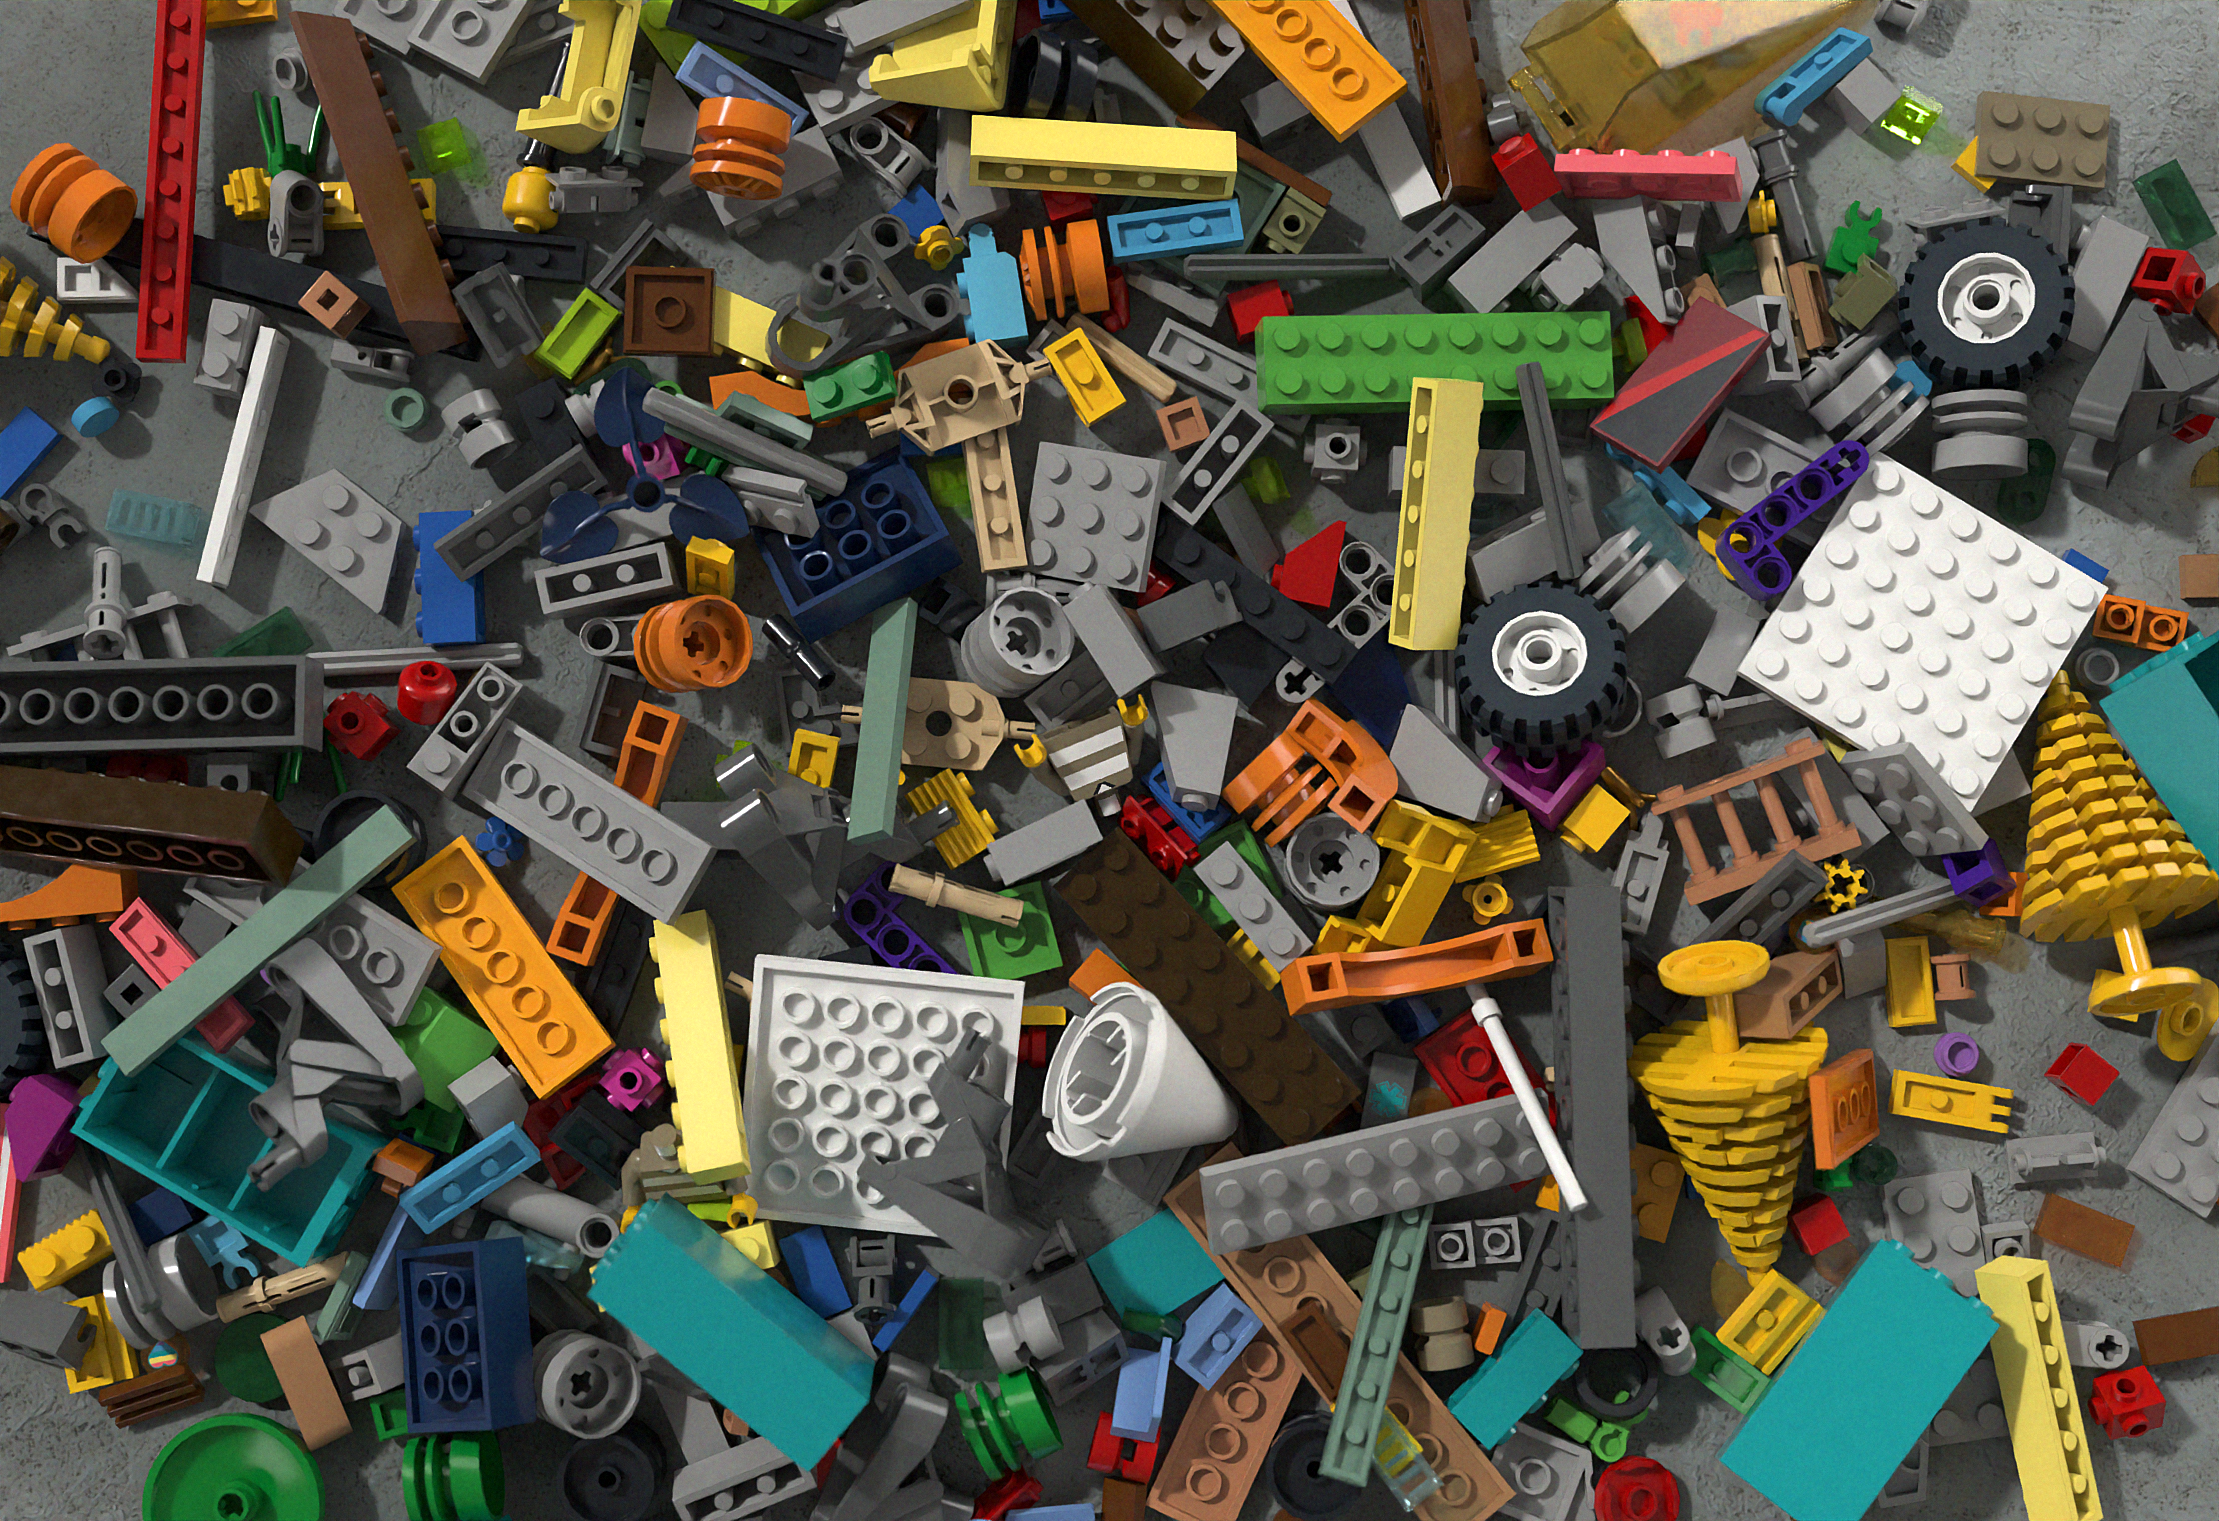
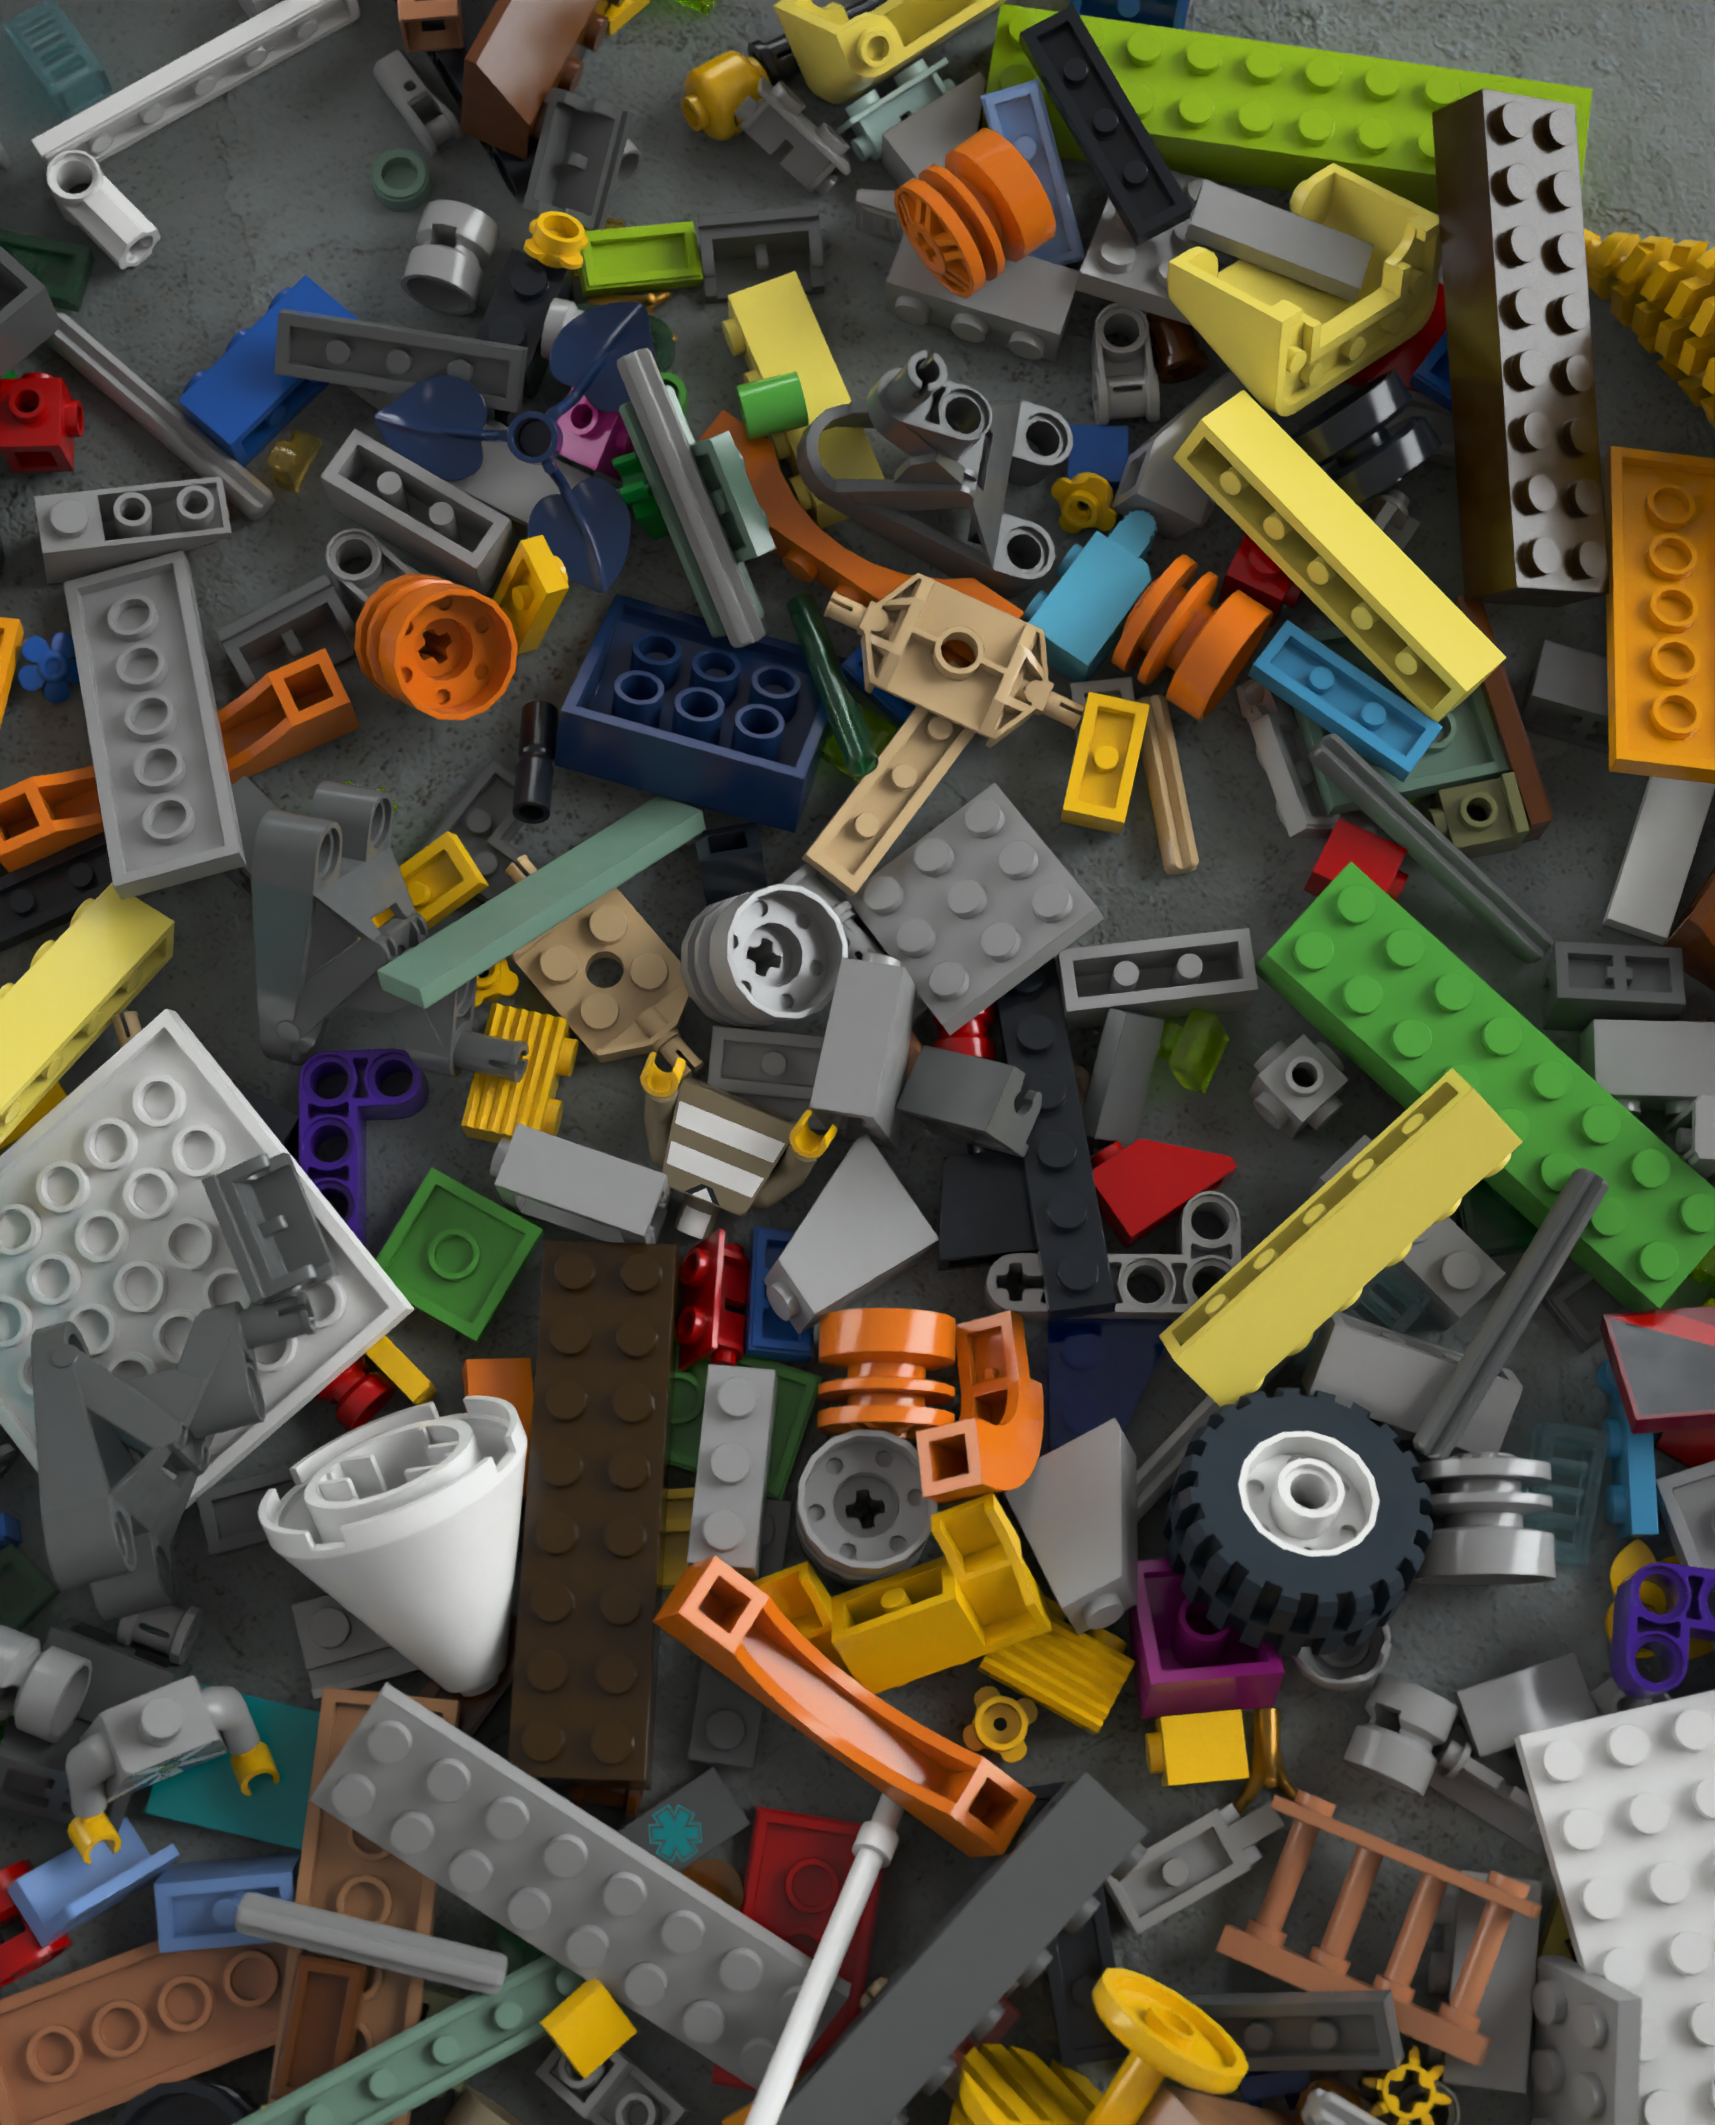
camera: 45 degrees right, 10 degrees down
(271, 579) = (100, 209): none -> white piece
(339, 532) = (215, 233): light grey wing -> none
(426, 692) = (132, 449): red head -> none
(510, 614) = (293, 460): none -> clear yellow tile
(523, 254) = (666, 137): black plate -> none
(534, 370) = (557, 240): none -> yellow plate
(669, 312) = (747, 310): reddish brown tile -> none
(736, 352) = (772, 405): none -> bright green gear
(773, 500) = (661, 585): light grey plate -> none
(850, 386) = (852, 543): green plate -> none
(909, 469) = (832, 685): none -> clear green piece
(921, 1013) = (270, 1228): none -> dark grey hinge
(947, 893) = (425, 1131): tan pin -> none
(1112, 1303) = (153, 1741): none -> light grey torso
(1118, 296) = (1222, 723): red arm -> none
(1152, 1324) = (178, 1824): dark green arm -> none
(1183, 424) = (1162, 907): nougat plate -> none
(1213, 368) = (1252, 885): light grey plate -> none
(1305, 1289) = (371, 1943): none -> light grey axle
(1411, 1016) = (790, 1767): dark blue tile -> none
(1440, 1225) = (588, 2027): none -> yellow tile

